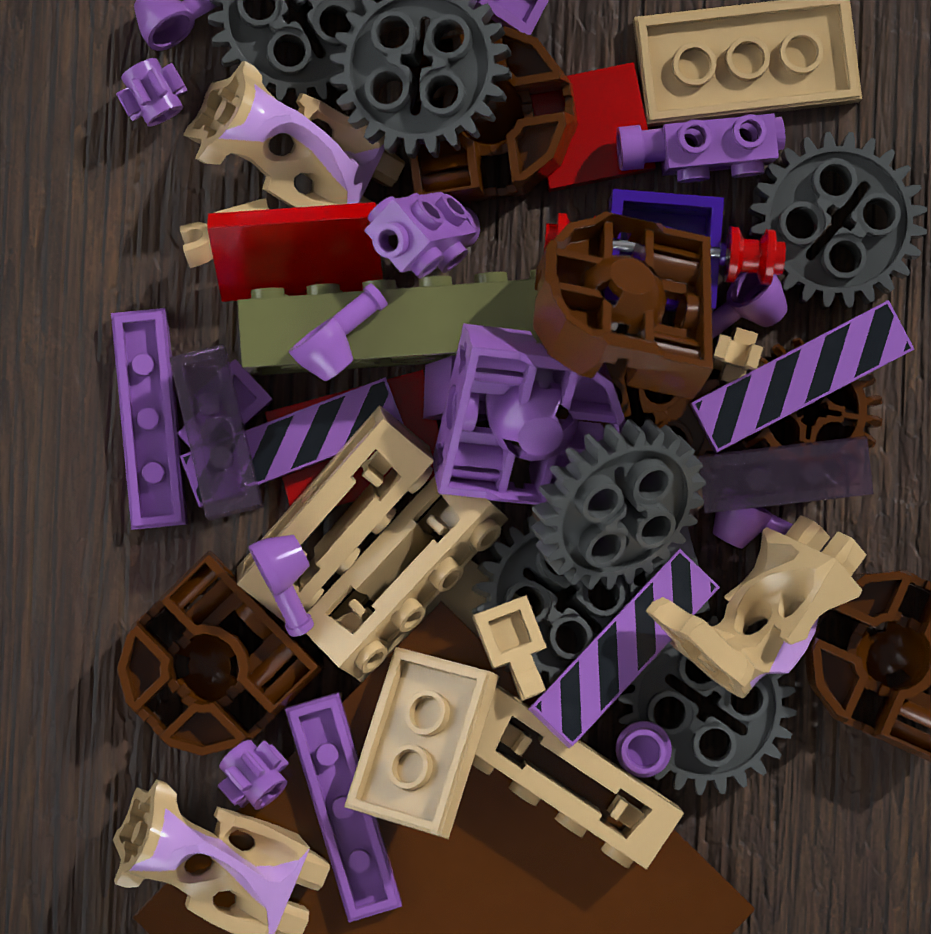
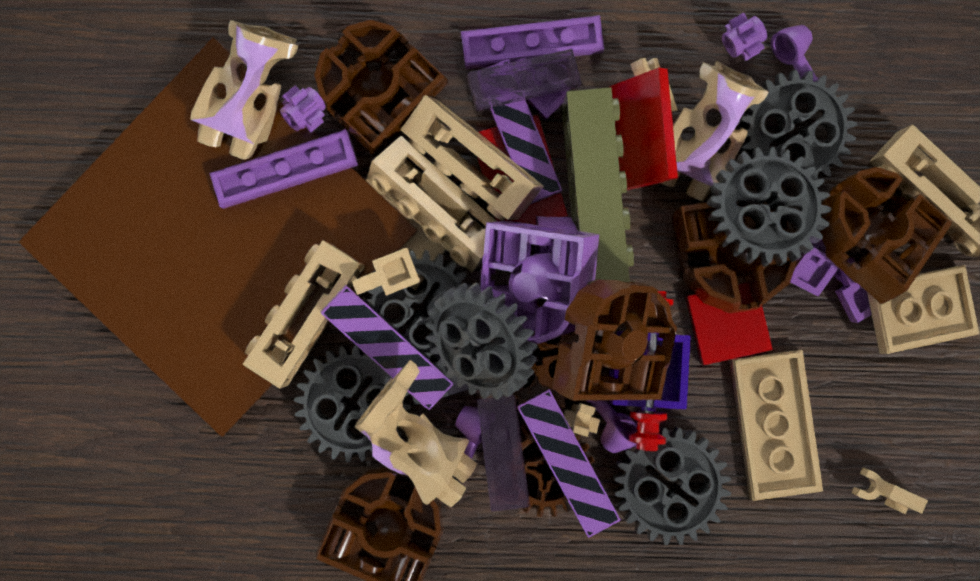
camera: 90 degrees right, 0 degrees up
(281, 564) = (437, 120): medium lavender bar -> none
(326, 347) = (580, 145): medium lavender bar -> none
(422, 742) = (323, 216): tan tile -> none
(429, 228) = (659, 209): medium lavender brick -> none
(643, 749) = (322, 361): medium lavender plate -> none
(716, 146) = (717, 403): medium lavender brick -> none

